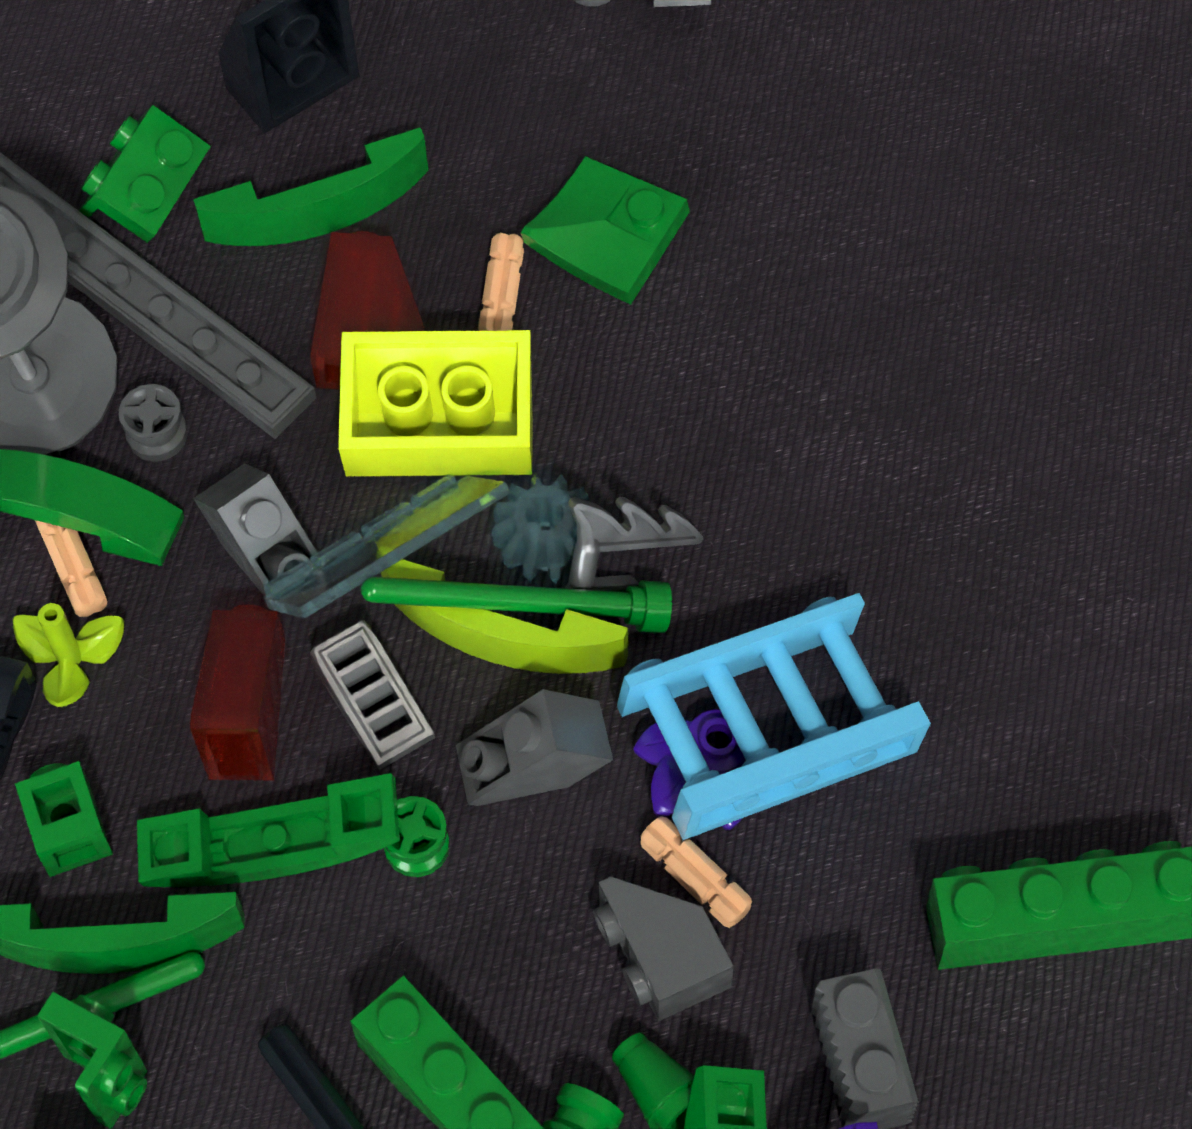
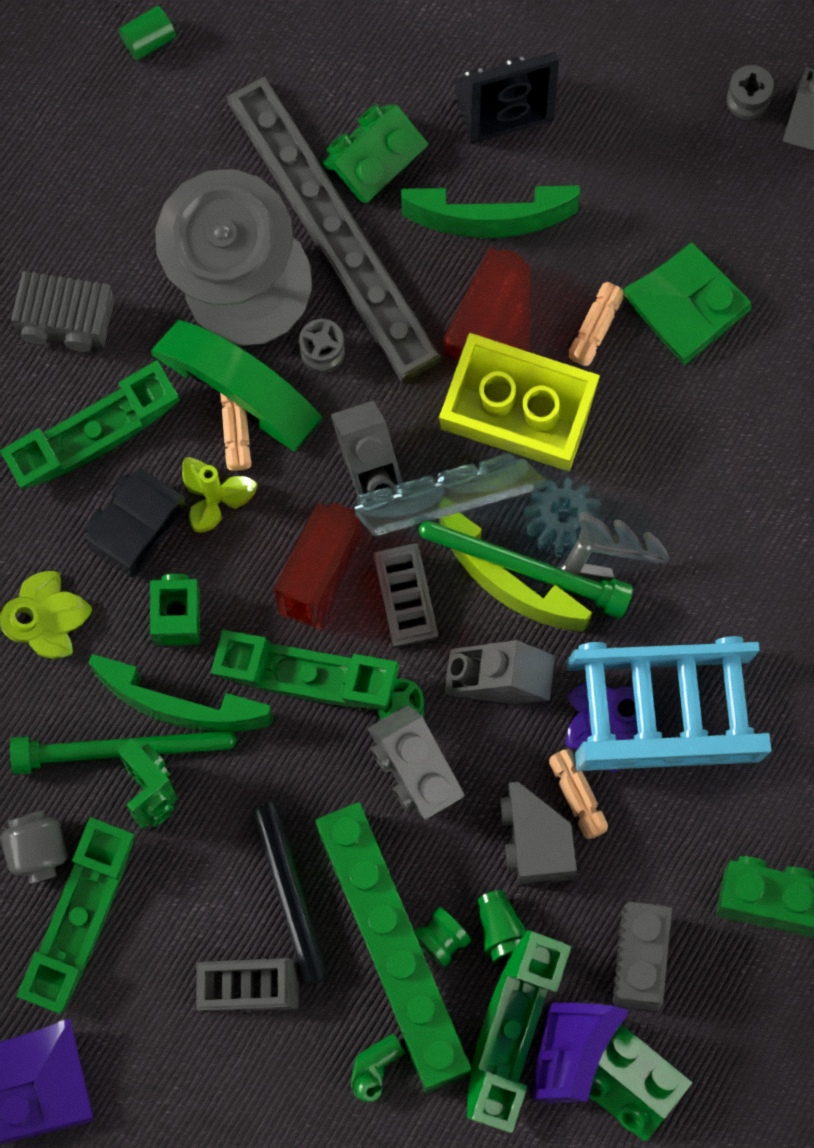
camera: 20 degrees right, 10 degrees up
(462, 899) = (416, 763): none -> dark grey brick

